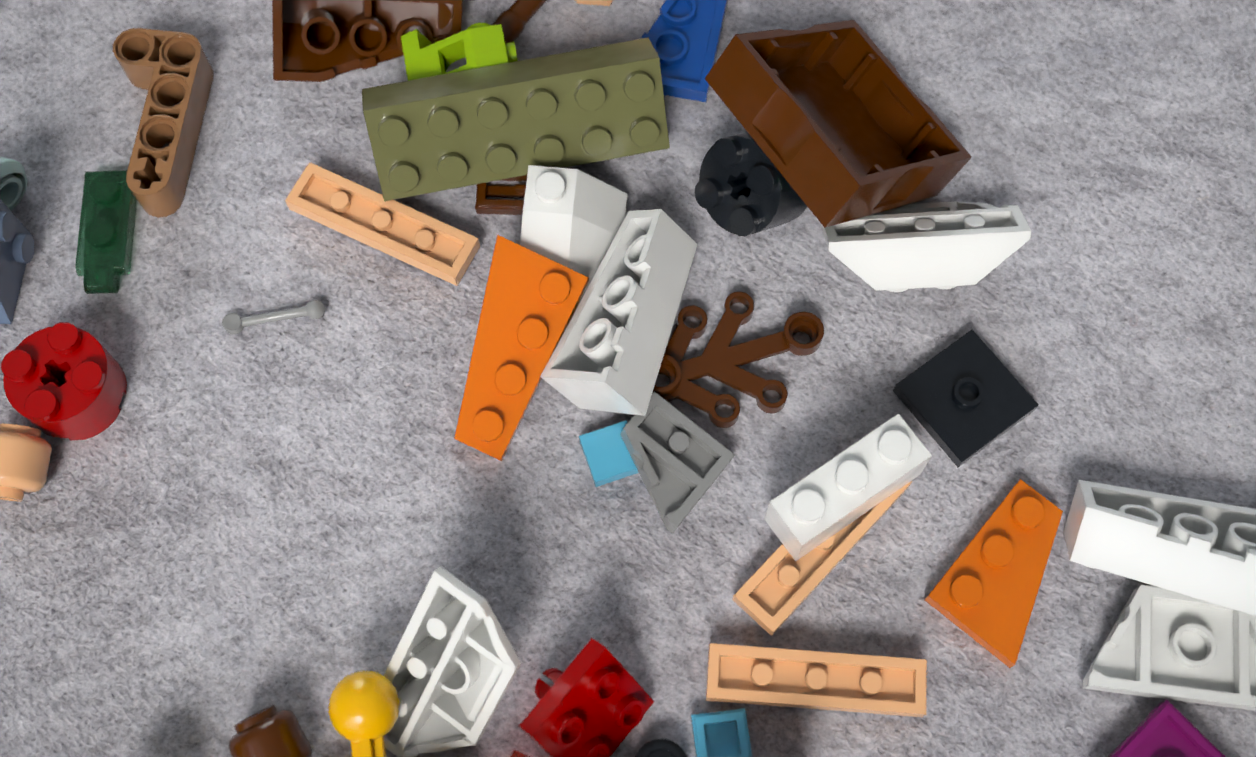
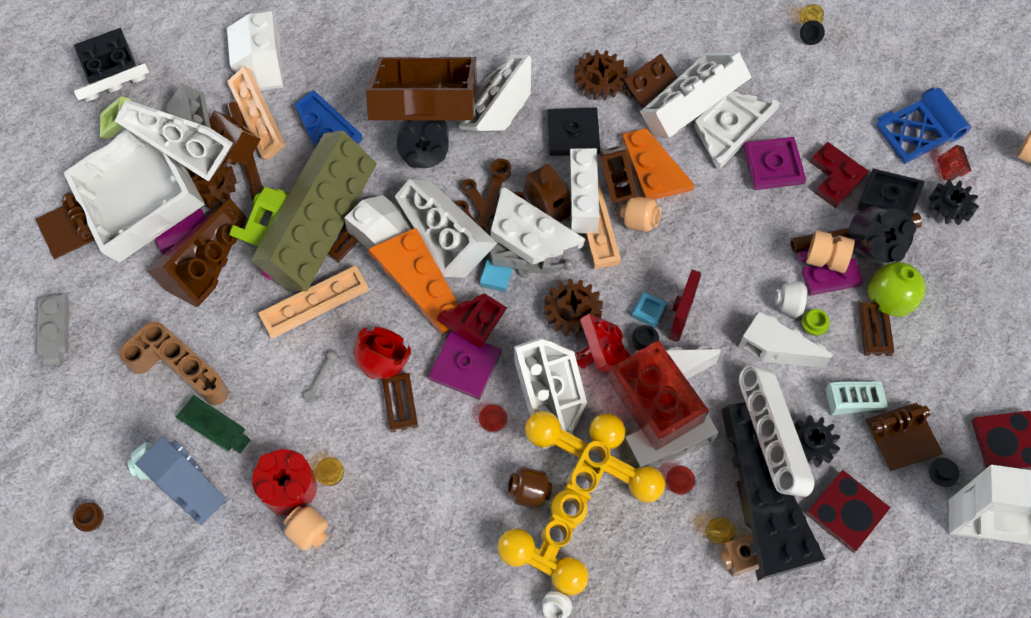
camera: 55 degrees left, 5 degrees down
(127, 433) = (329, 471): none -> clear yellow plate
(313, 470) = (403, 424): none -> reddish brown tile
(350, 371) = (380, 353): none -> red cylinder
(358, 613) = (493, 418): none -> clear red plate
(425, 510) = (465, 365): none -> magenta plate
(501, 471) = (474, 318): none -> dark red wing
(649, 594) = (562, 312): none -> reddish brown gear
(710, 549) = (567, 264): none -> light grey hinge
(717, 451) = (529, 230): none -> white wing
(804, 433) = (546, 188): none -> reddish brown torso
(816, 680) = (650, 259): light nougat plate -> none
(886, 609) = (641, 214): none -> light nougat head
(933, 504) = (618, 170): none -> reddish brown torso
(1091, 349) = (600, 75): none -> reddish brown gear
(1160, 458) = (649, 80): none -> reddish brown hinge

